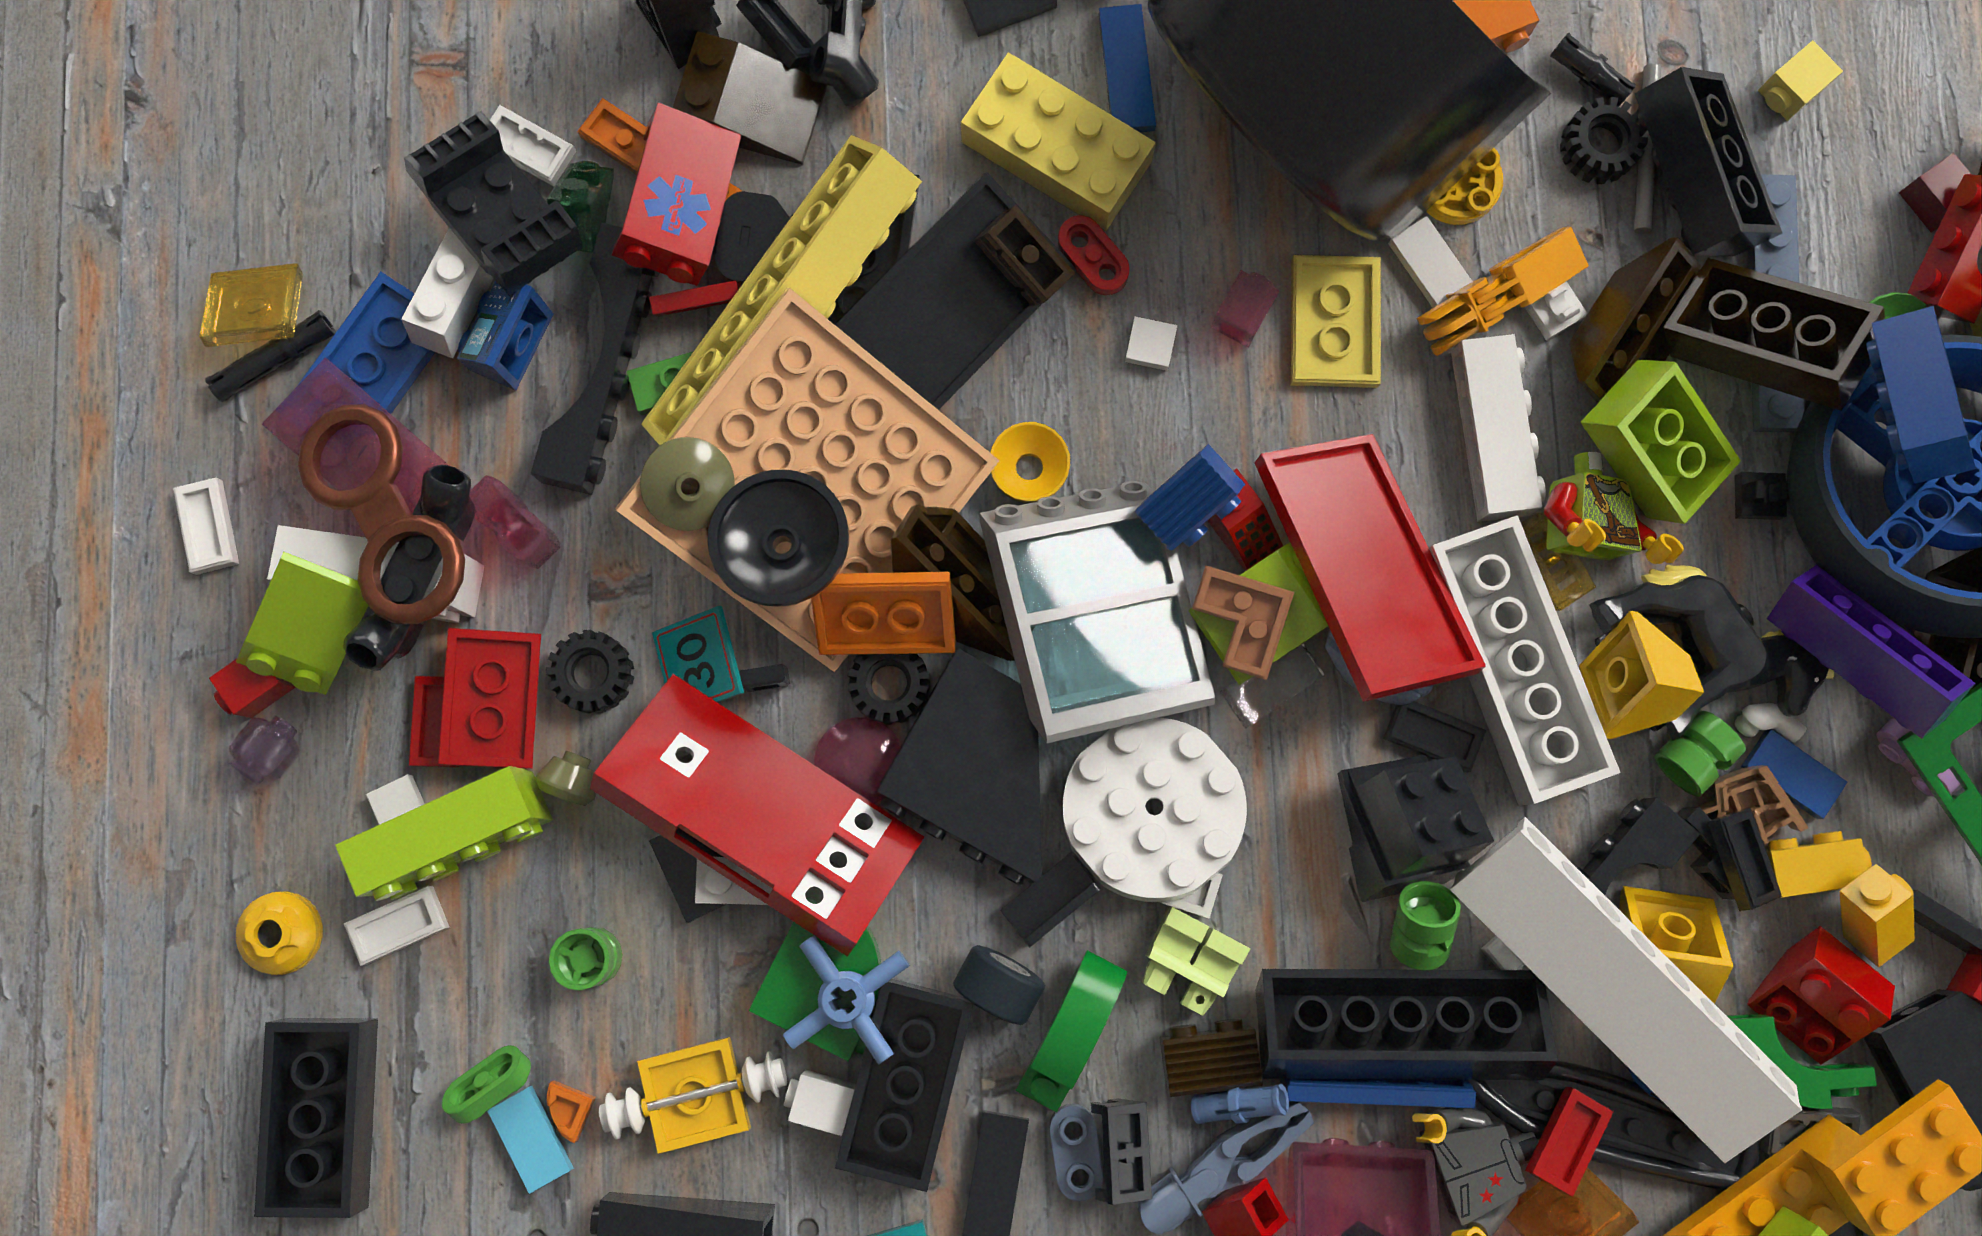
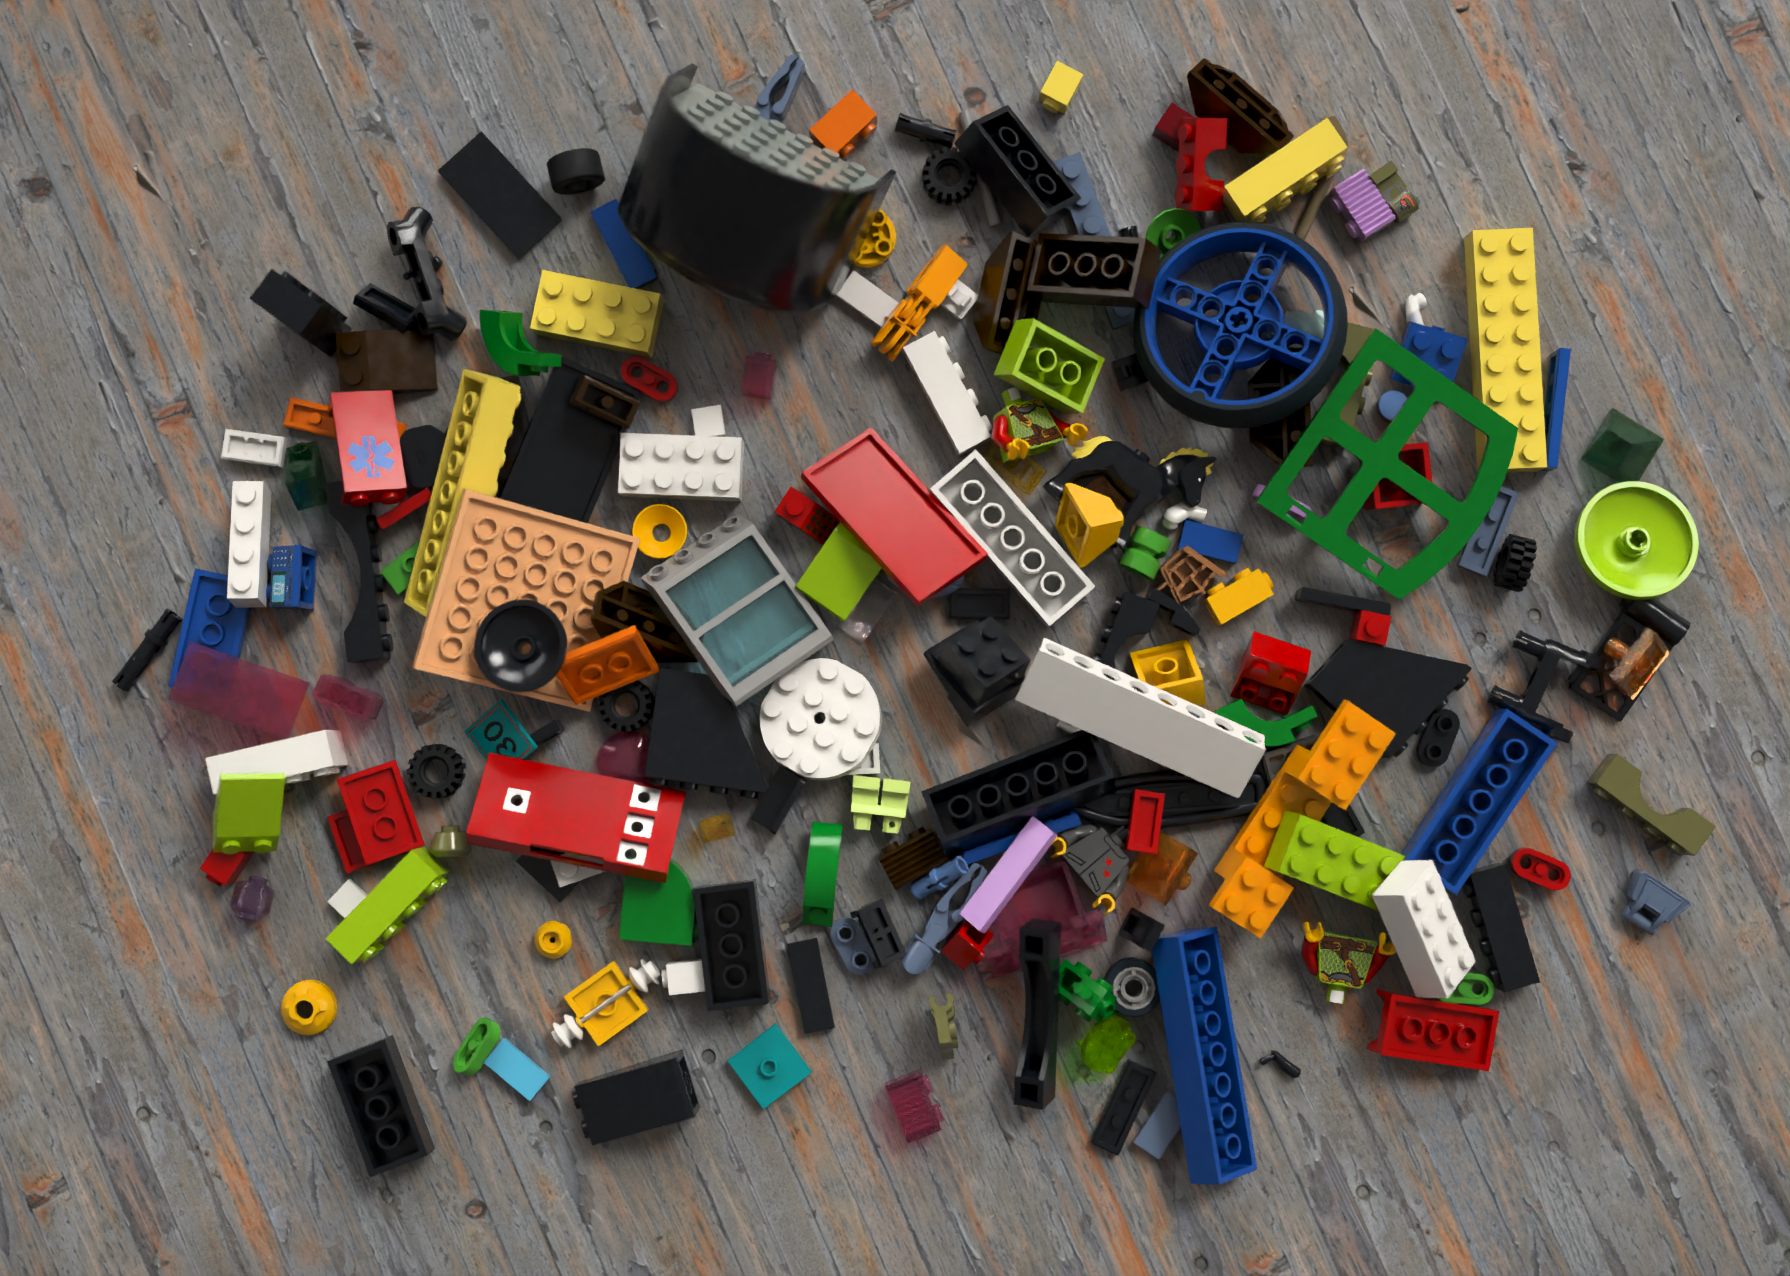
camera: 20 degrees left, 5 degrees up
(206, 526) = (152, 774): white tile -> none
(251, 305) = (121, 622): clear yellow tile -> none
(381, 514) = (268, 726): copper bar -> none
(396, 925) = (380, 974): white tile -> none
(413, 569) = (303, 744): black plate -> none
(492, 204) = (254, 502): black plate -> none
(568, 1109) = (533, 1042): orange tile -> none
(585, 958) = (506, 947): bright green wheel -> none
(667, 470) = (437, 627): olive dish -> none
(670, 968) = (562, 939): none -> yellow plate
(828, 995) = (686, 906): medium blue bar -> none
(921, 136) = (508, 346): none -> green arch
(949, 905) = (717, 827): none -> clear yellow slope
(999, 985) = (766, 863): black wheel -> none
(1091, 386) = (681, 467): none -> white brick
(1191, 498) = (767, 519): blue brick -> none
(1258, 615) = (834, 572): nougat tile -> none
(1335, 321) = (821, 361): light yellow tile -> none
(1347, 1142) = (1008, 874): none -> lavender tile
(1424, 925) = (1009, 726): bright green wheel -> none
(1744, 859) = (1191, 609): black tile -> none
(1869, 651) = (1217, 453): dark purple brick -> none
(1878, 914) = (1284, 611): yellow brick -> none
(1919, 396) = (1187, 286): blue brick -> none

